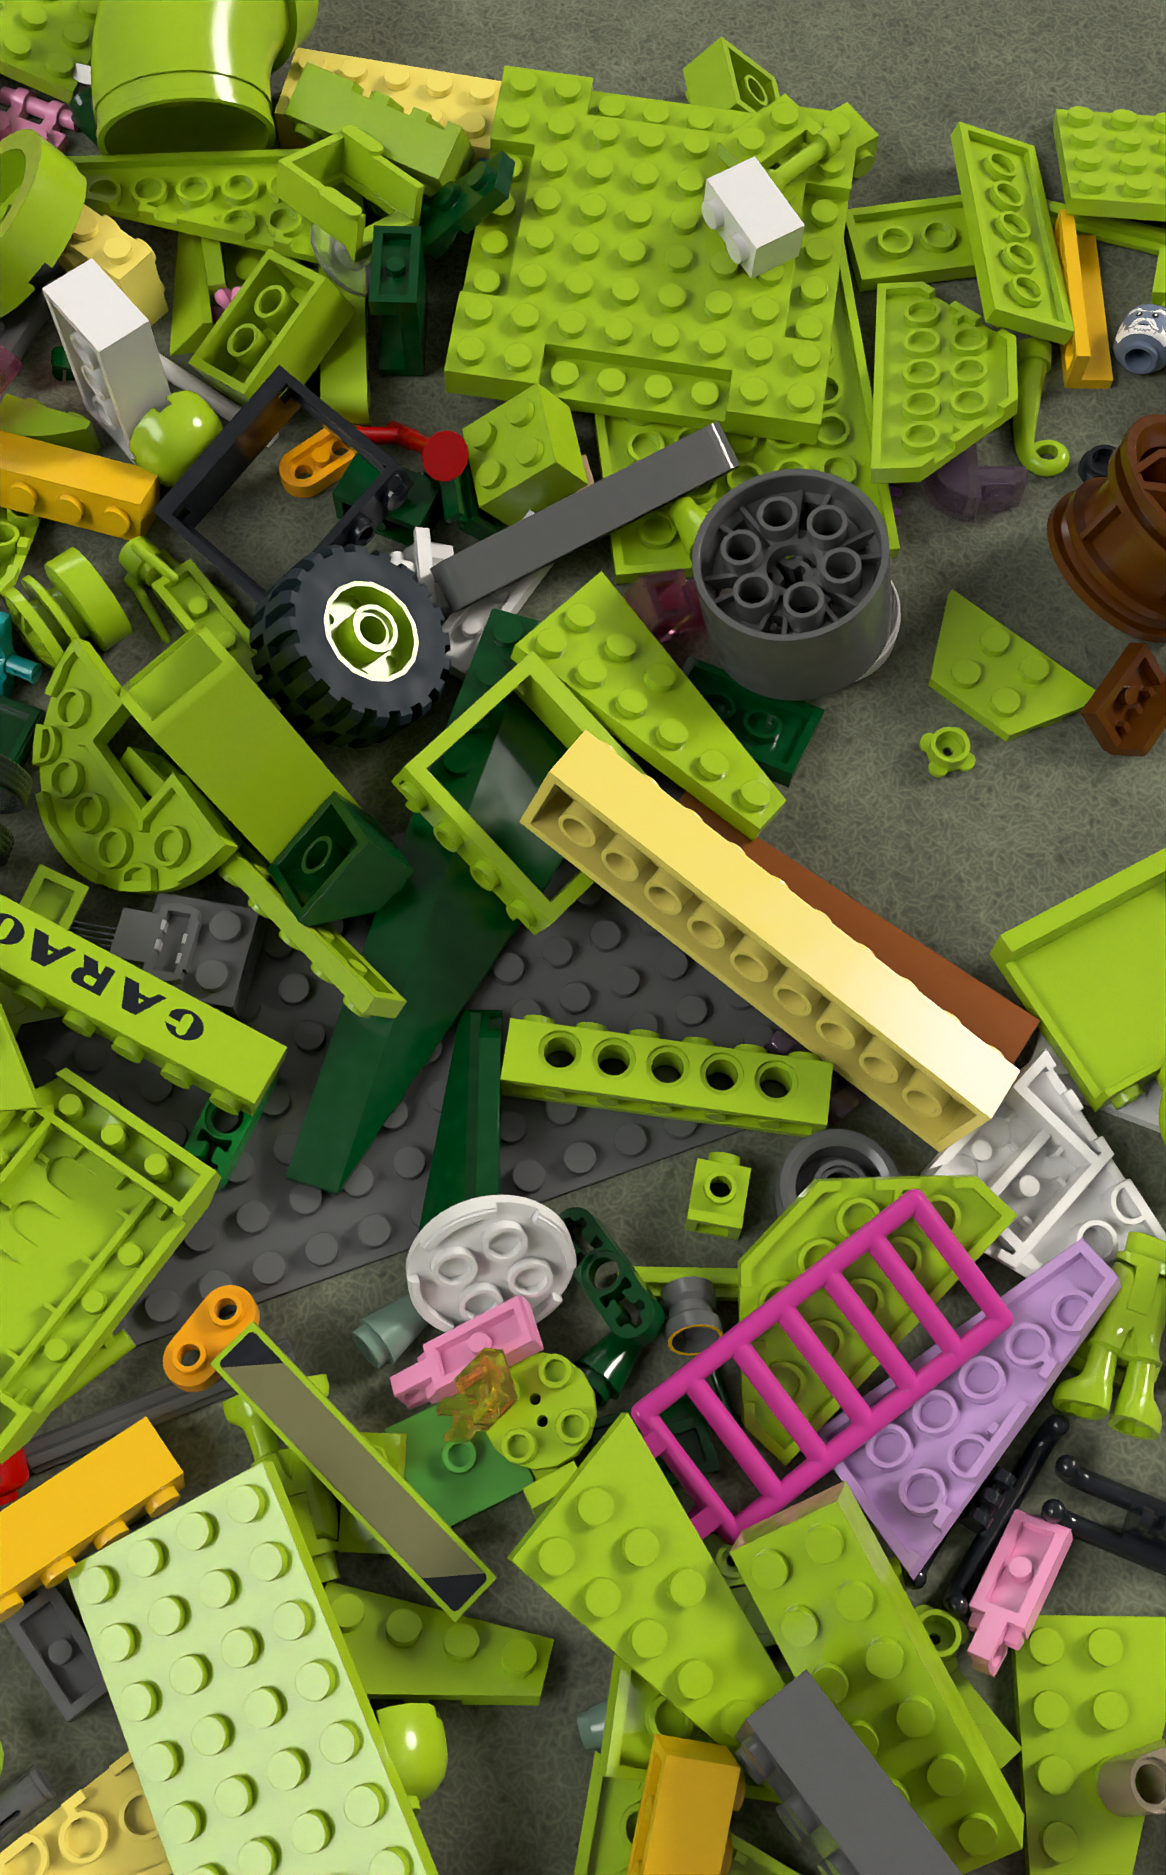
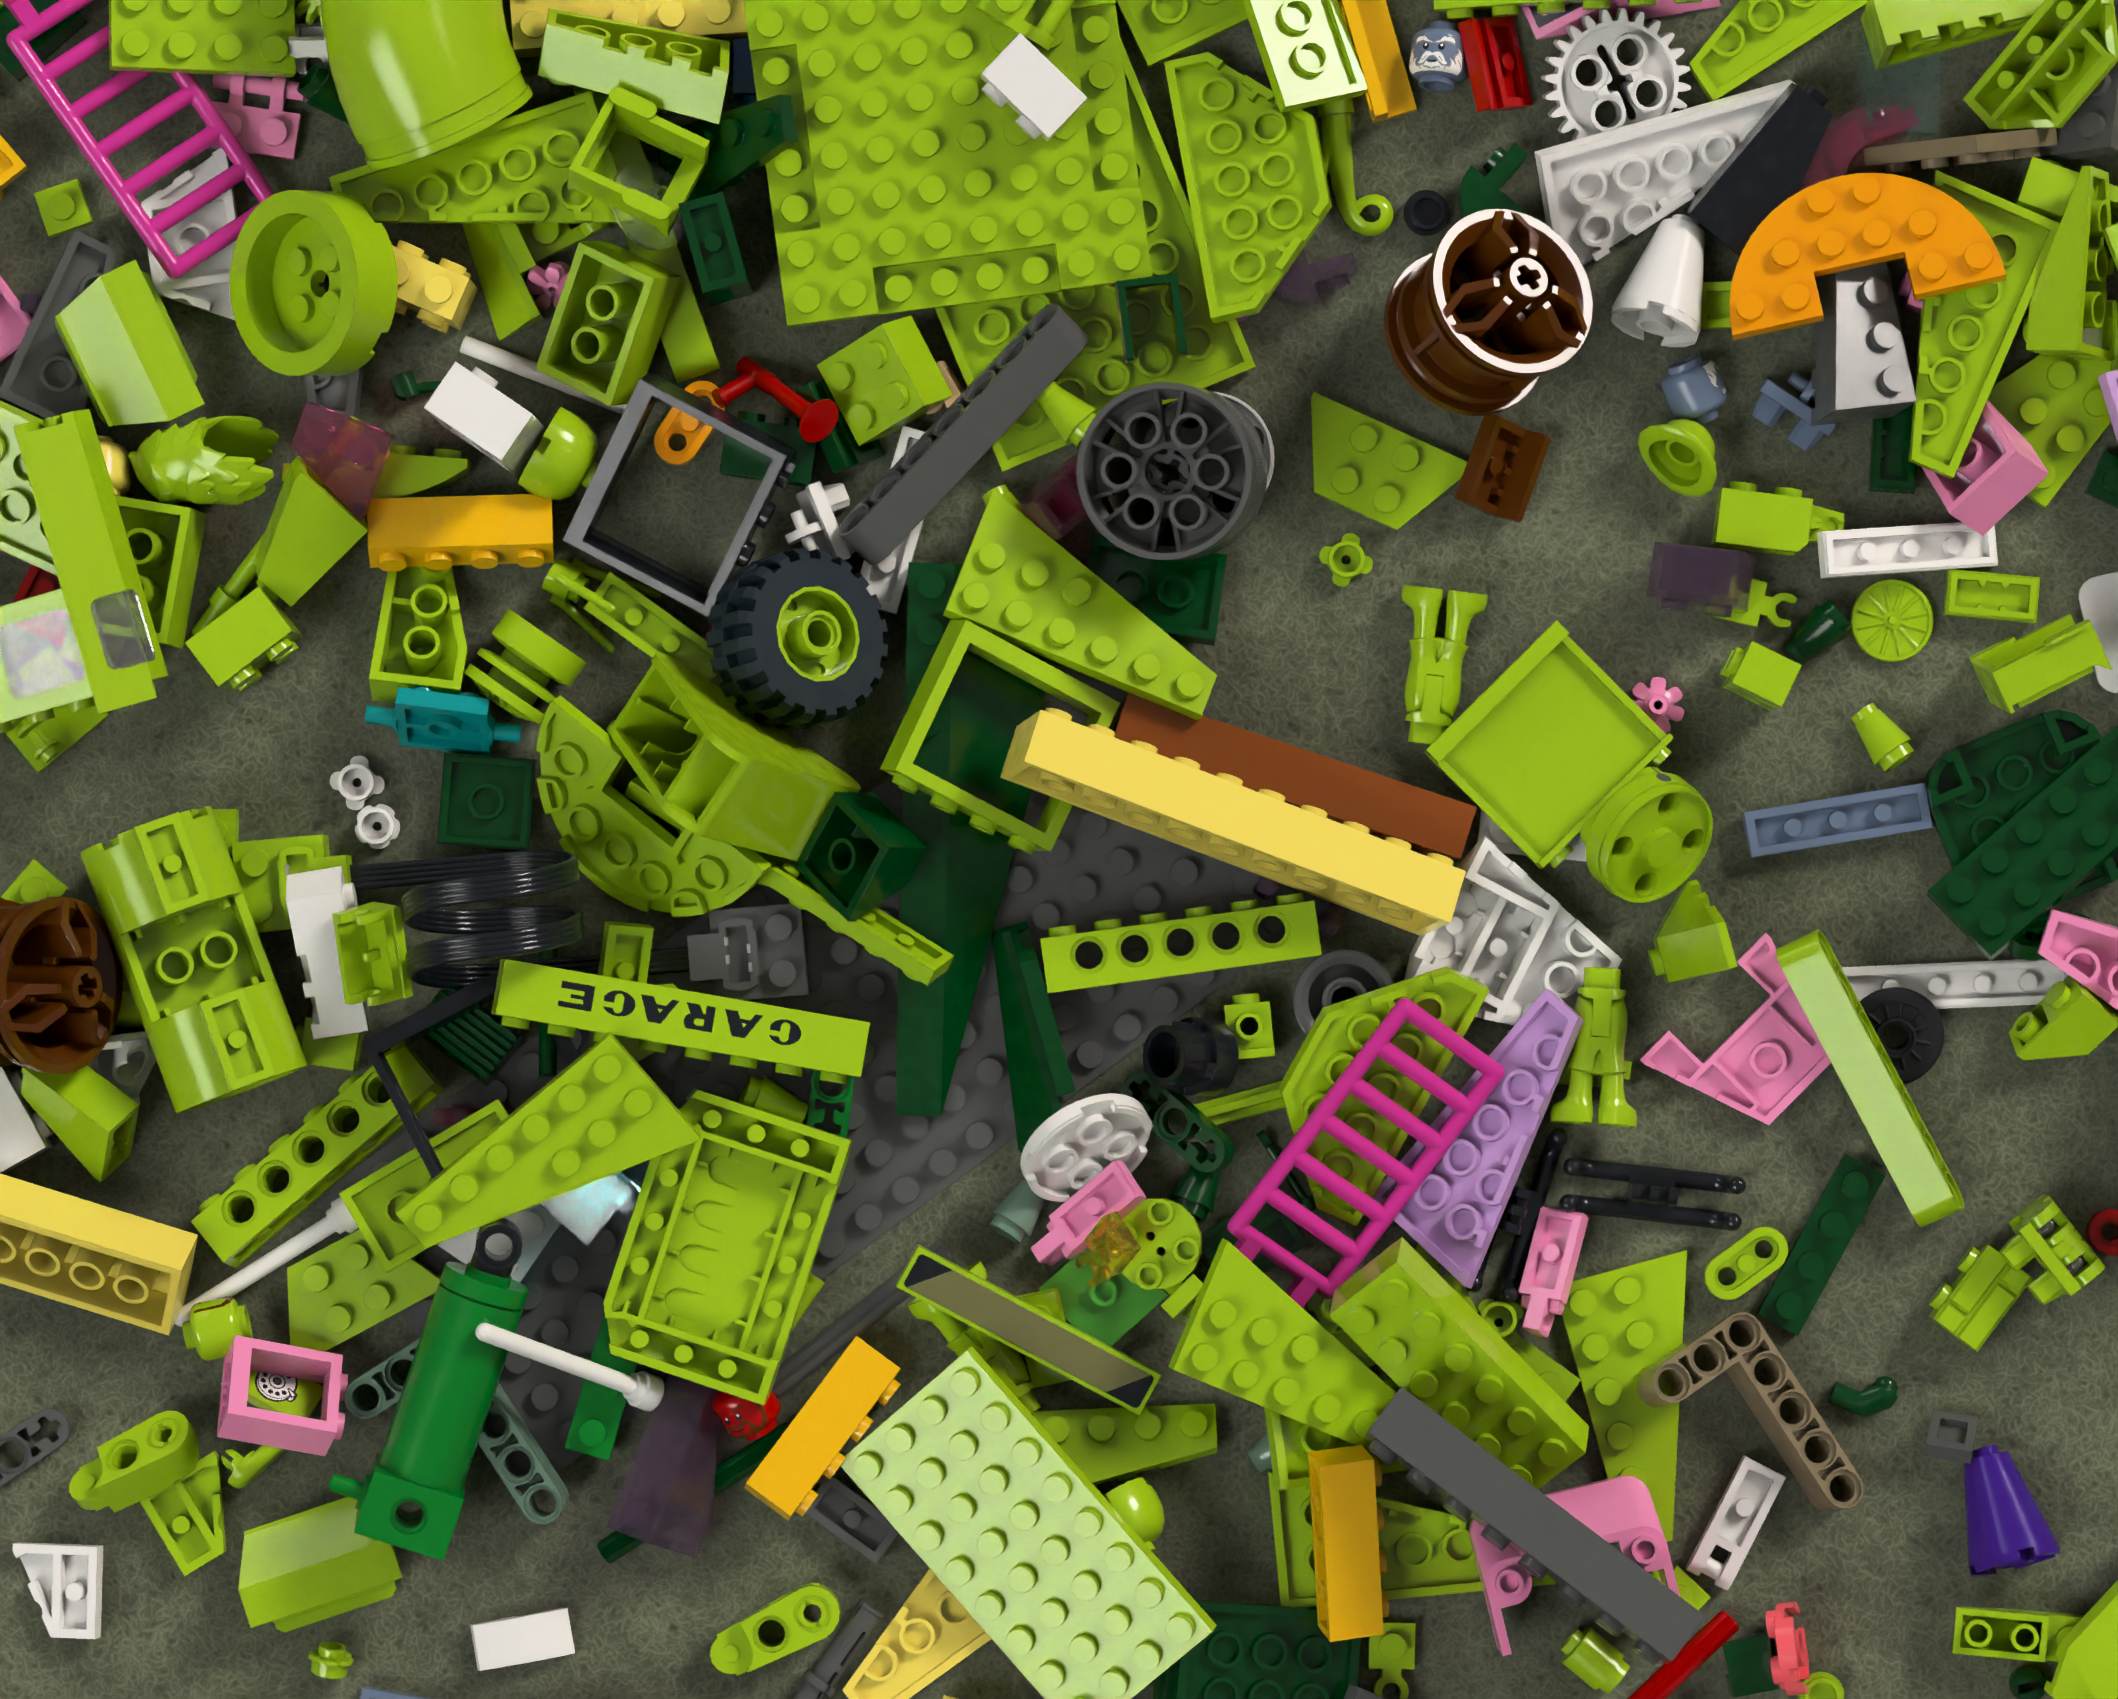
camera: 15 degrees left, 20 degrees up
(153, 1110) = (771, 1098): none -> lime cone
(209, 1336) = (883, 1260): light orange plate -> none
(644, 1201) = (1192, 1056): none -> black piece
(690, 1310) = (1253, 1135): dark grey wheel -> none
(830, 442) = (1175, 301): none -> dark green piece
(1025, 867) = (1436, 662): none -> lime piece

